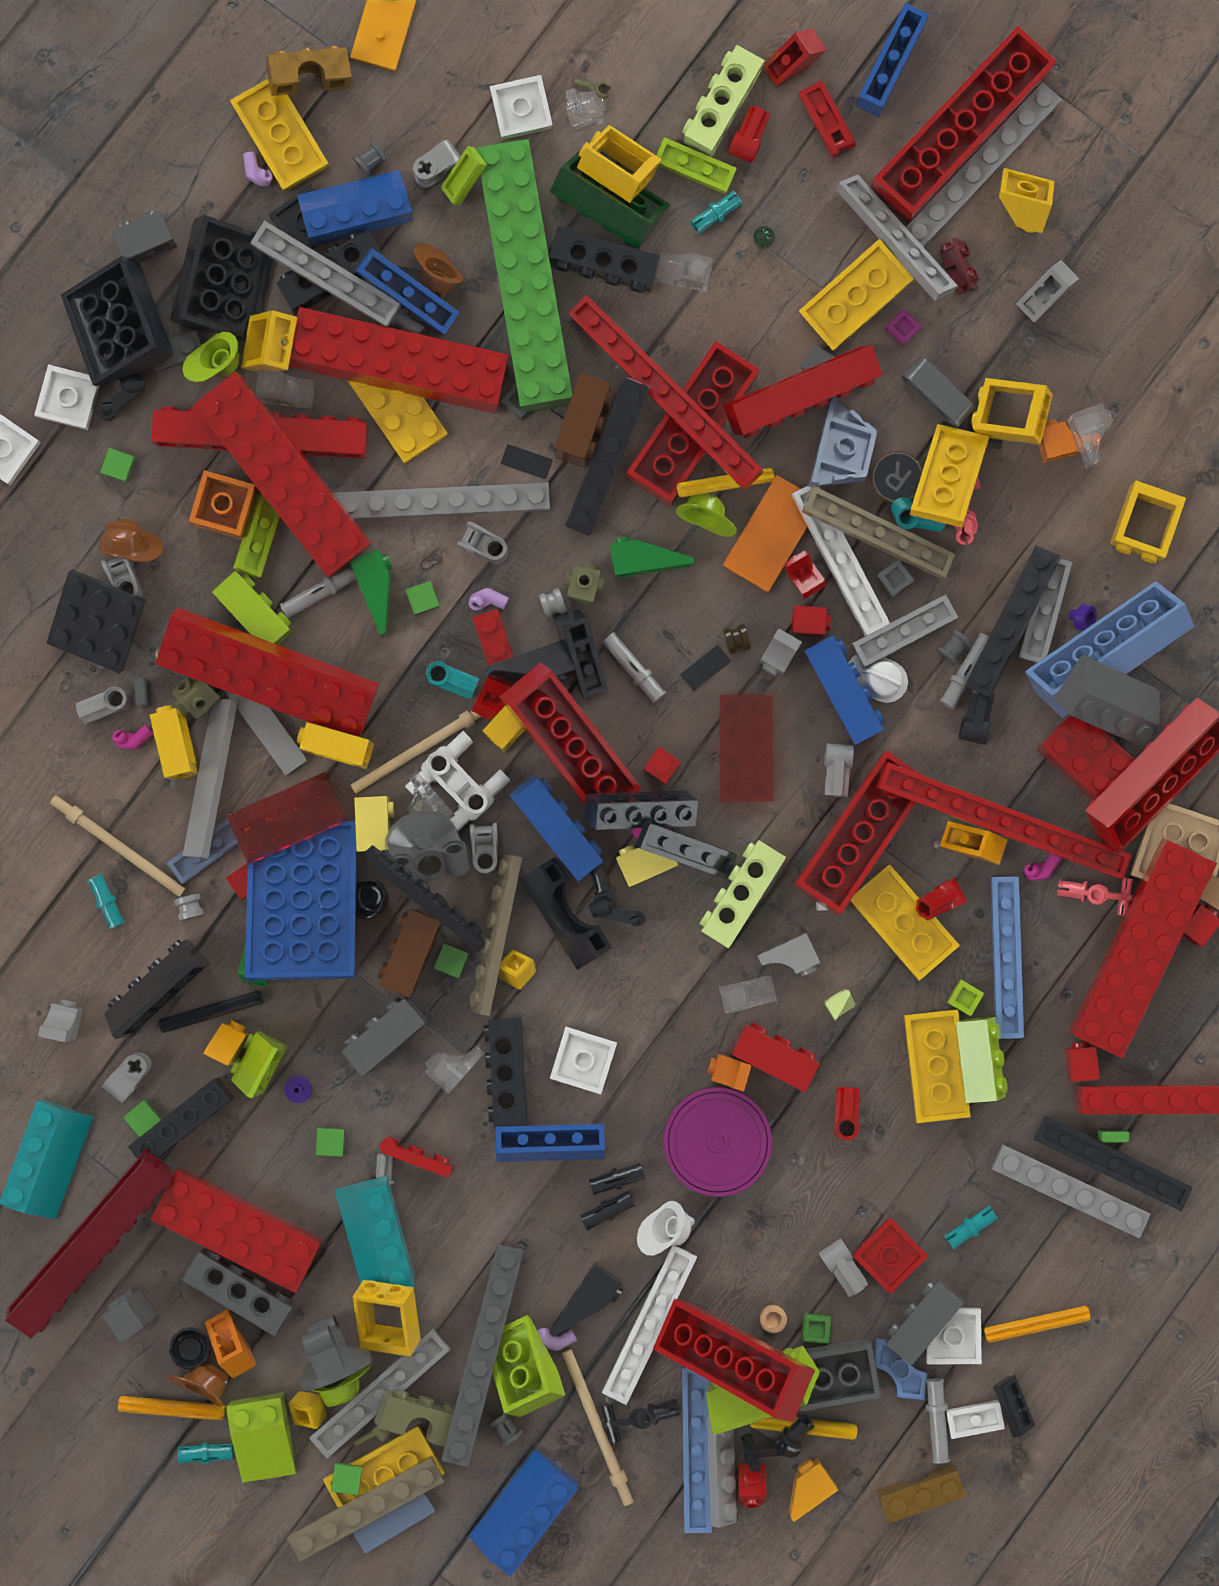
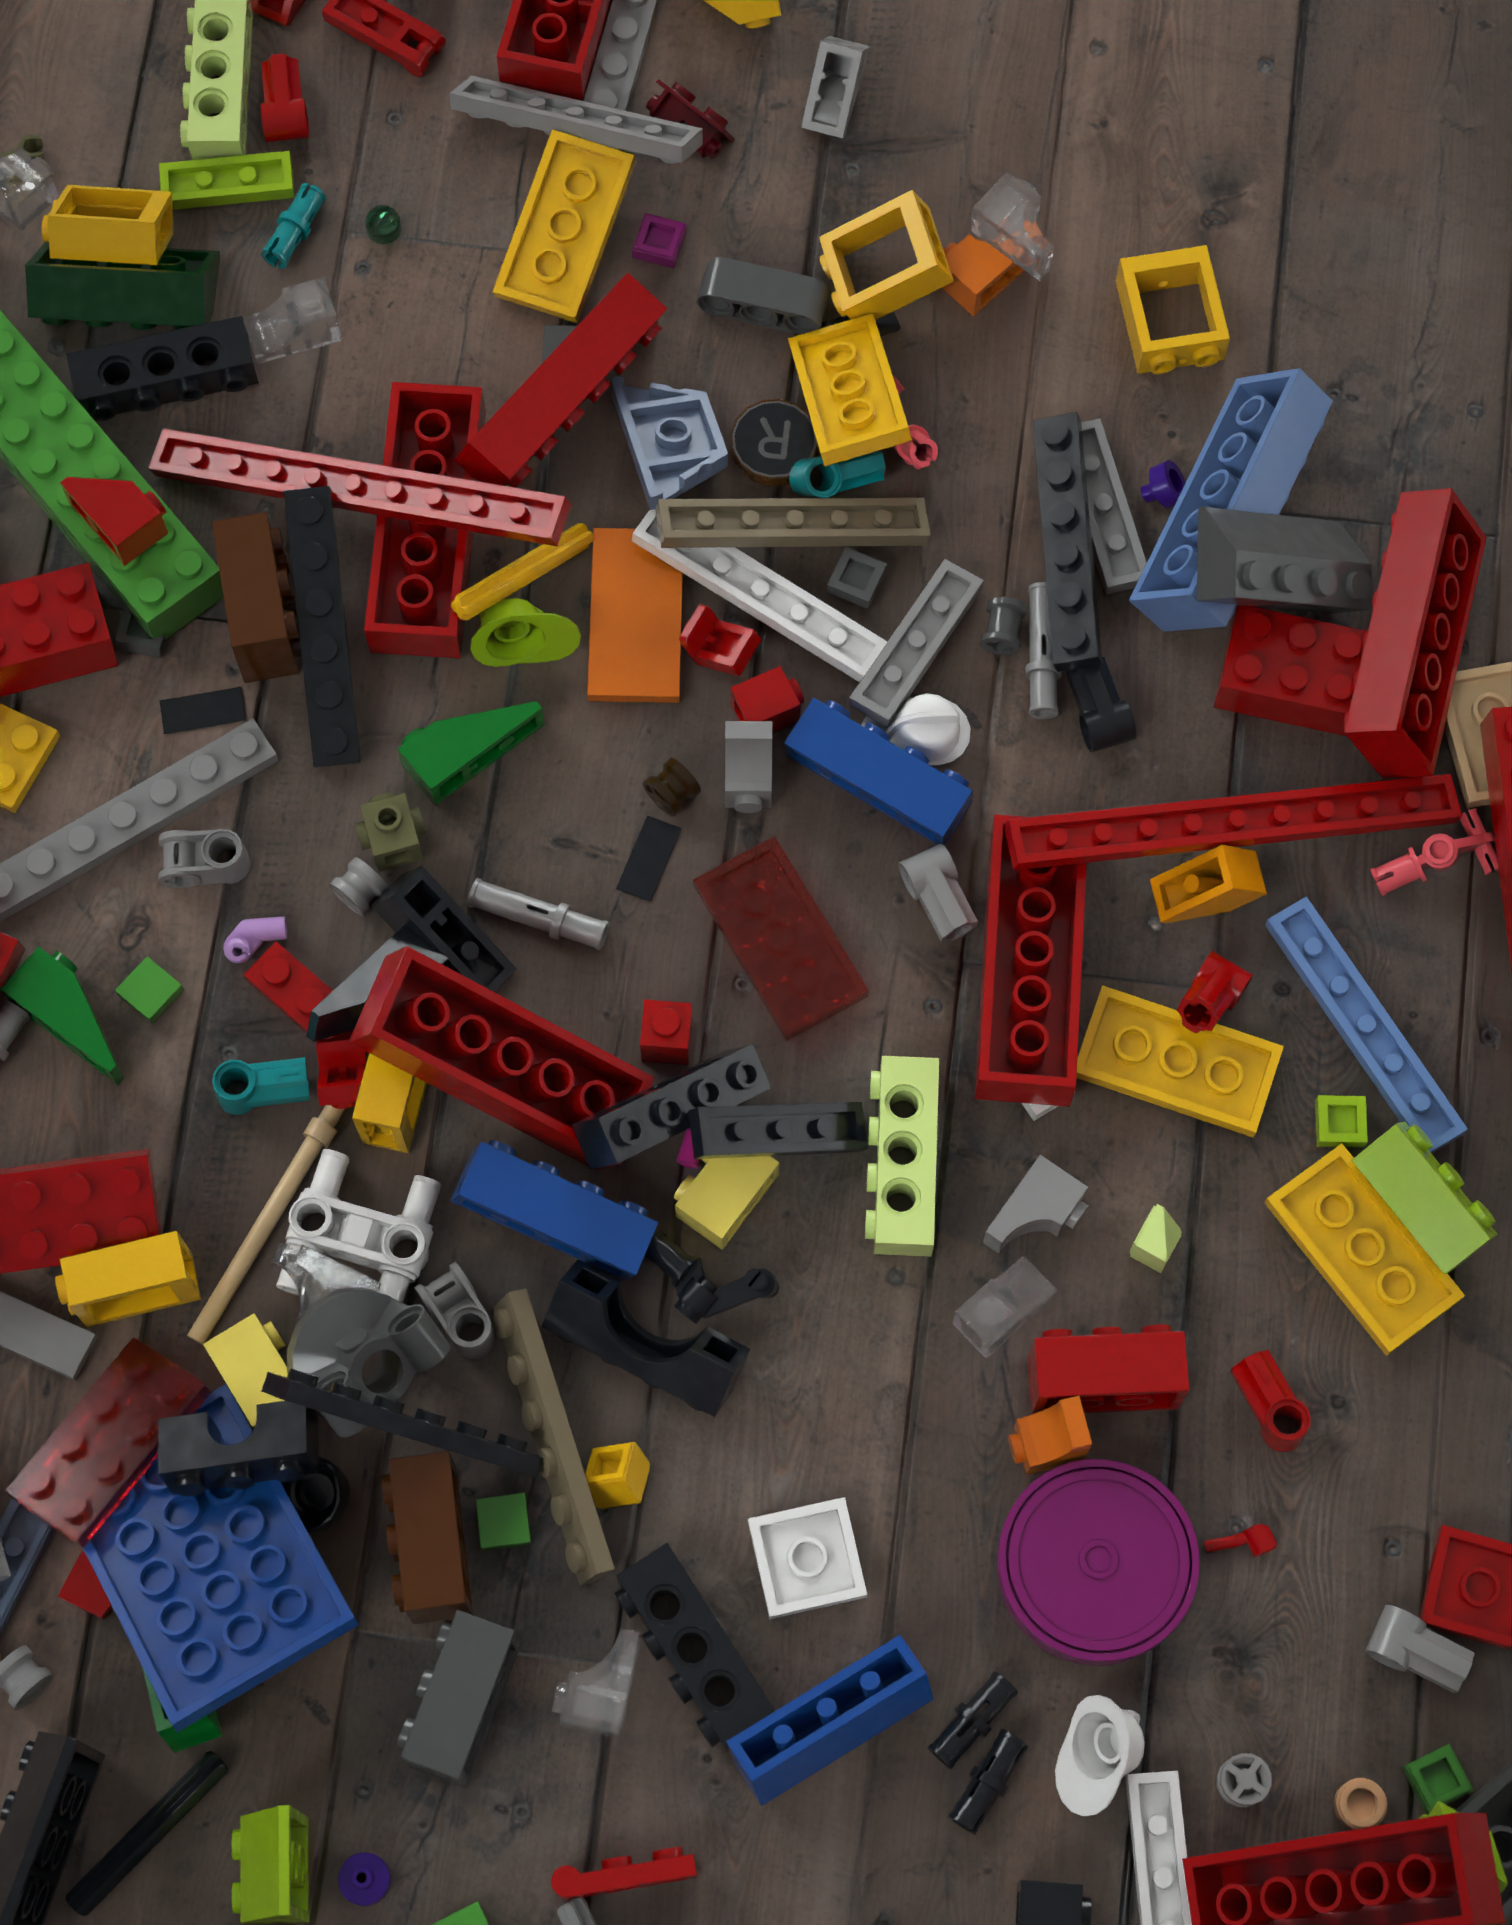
camera: 30 degrees left, 15 degrees down
(227, 1043) = (201, 1864): light orange slope -> none
(320, 854) = (278, 1449): none -> black arch
(535, 341) = (118, 514): none -> red slope
(727, 1282) = (1249, 1774): none -> light grey wheel
(801, 1172) = (1257, 1537): none -> red hand
(1042, 870) = (1335, 872): dark pink arm -> none

